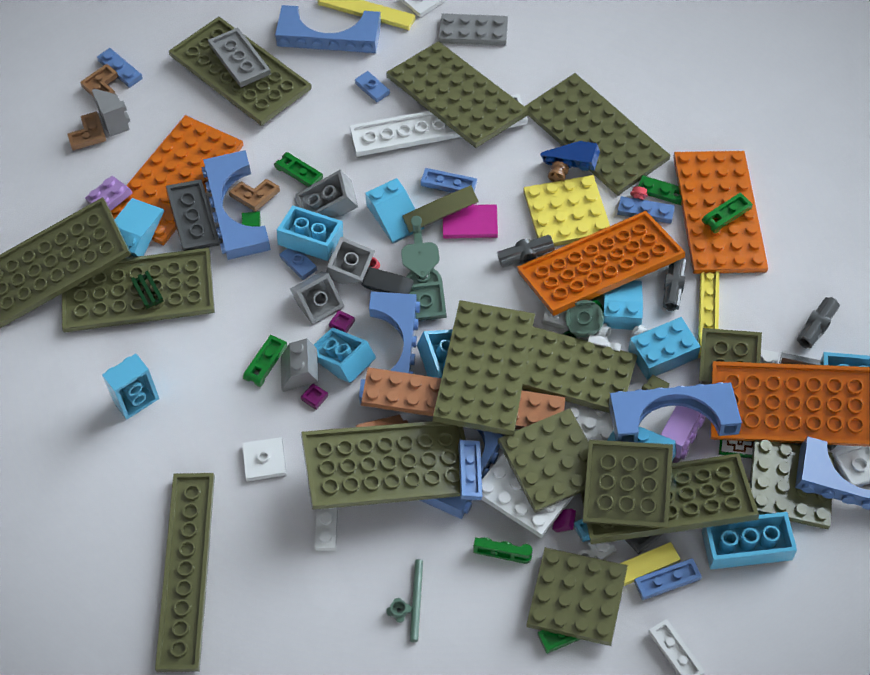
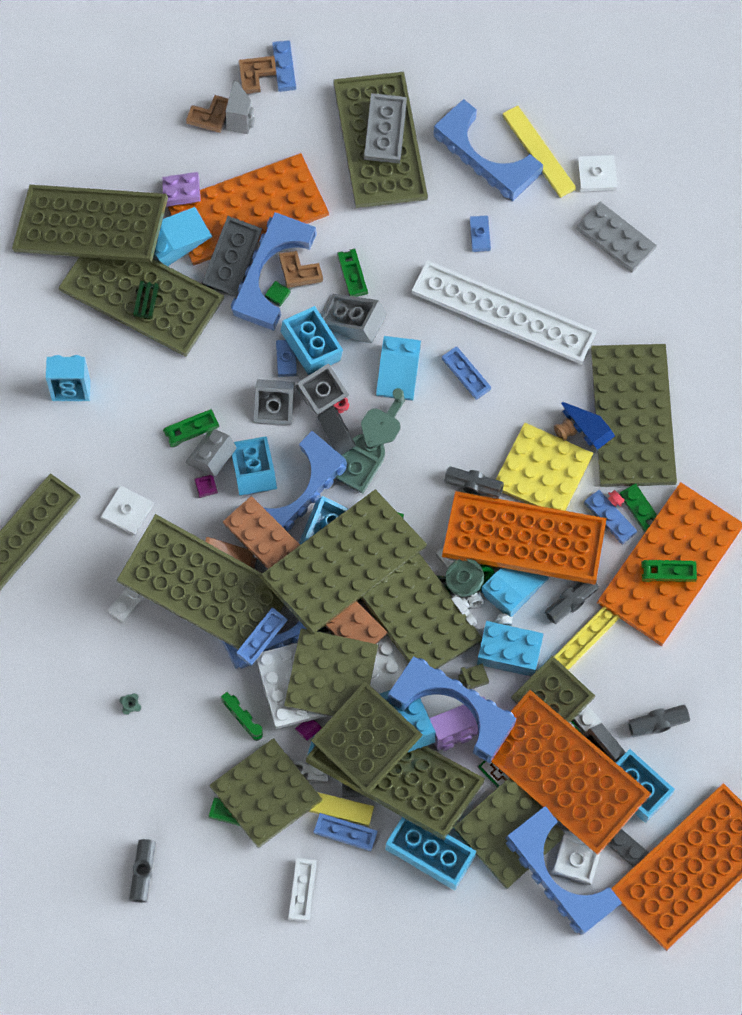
camera: 35 degrees right, 10 degrees up
(342, 321) = (277, 437): magenta tile -> none
(416, 600) = (149, 706): sand green bar -> none
(442, 207) = (436, 394): olive slope -> none
(457, 94) = (542, 293): olive plate -> none
(472, 222) = (454, 421): dark pink tile -> none

